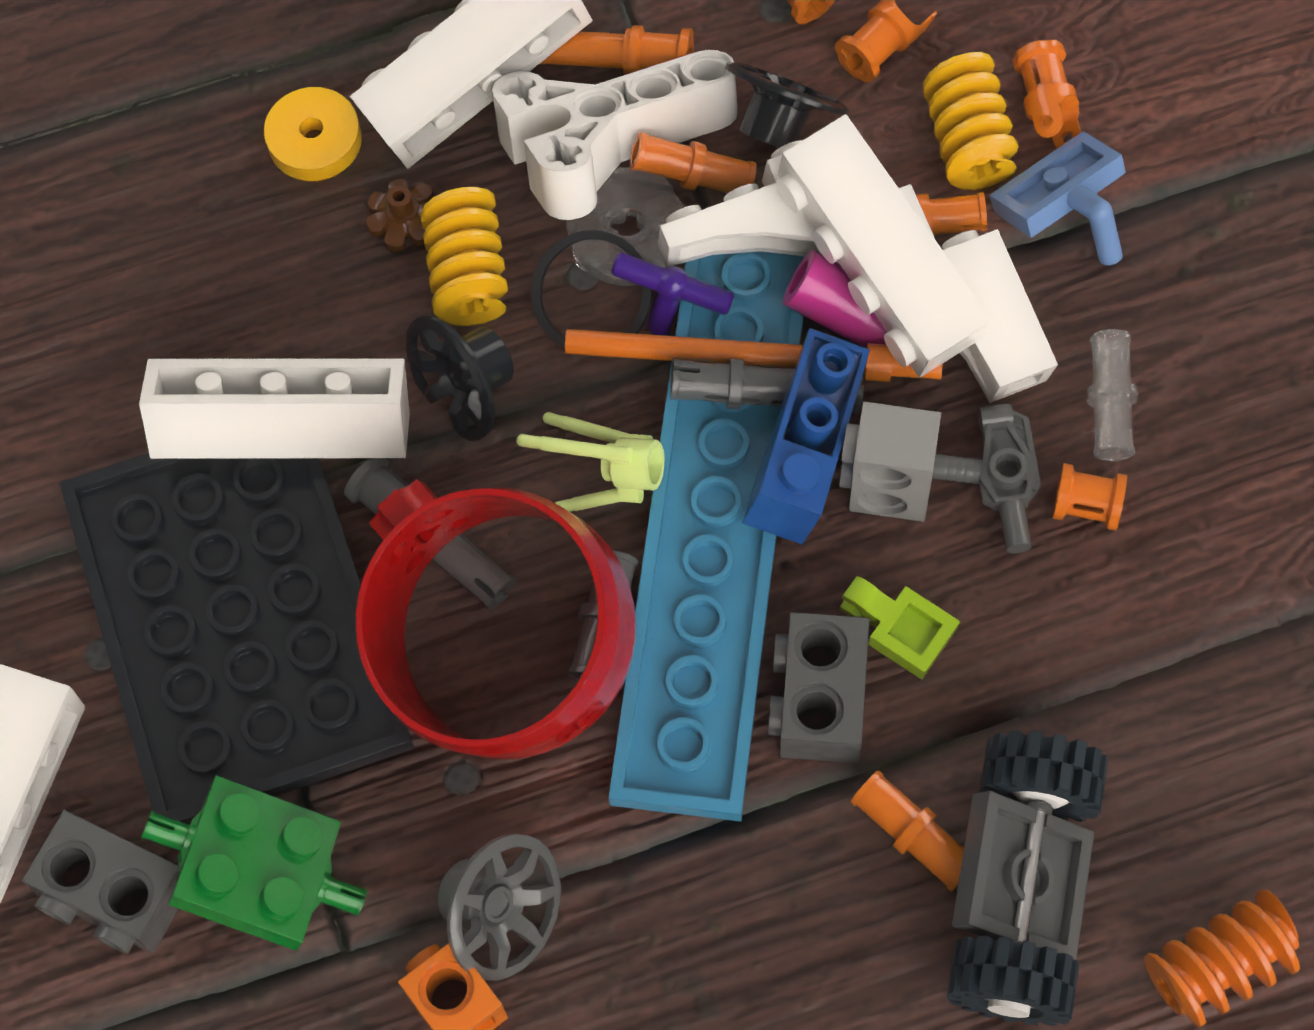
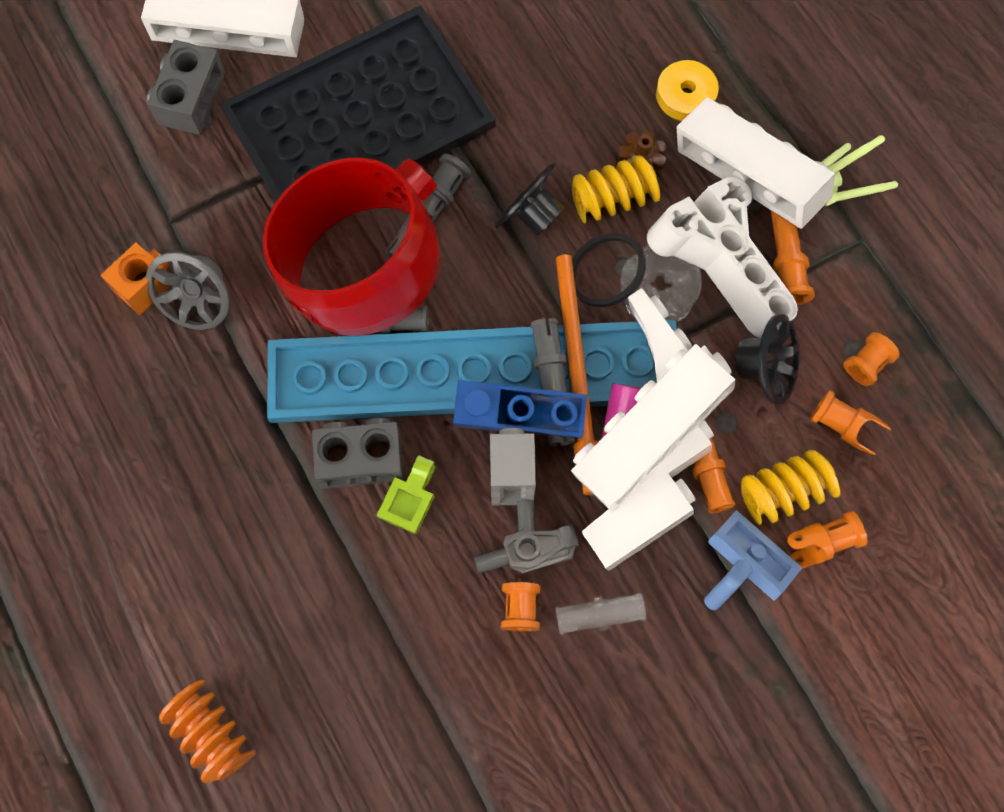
camera: 75 degrees right, 5 degrees up
(254, 863) = (200, 154): green plate -> none
(275, 408) = (475, 98): white brick -> none
(628, 460) = (483, 310): yellowish green plant -> none
(671, 287) = (613, 313): dark purple piece -> none
(690, 164) = (710, 311): orange pin -> none
(911, 828) = (273, 526): orange pin -> none
(1026, 878) = (239, 595): plate -> none

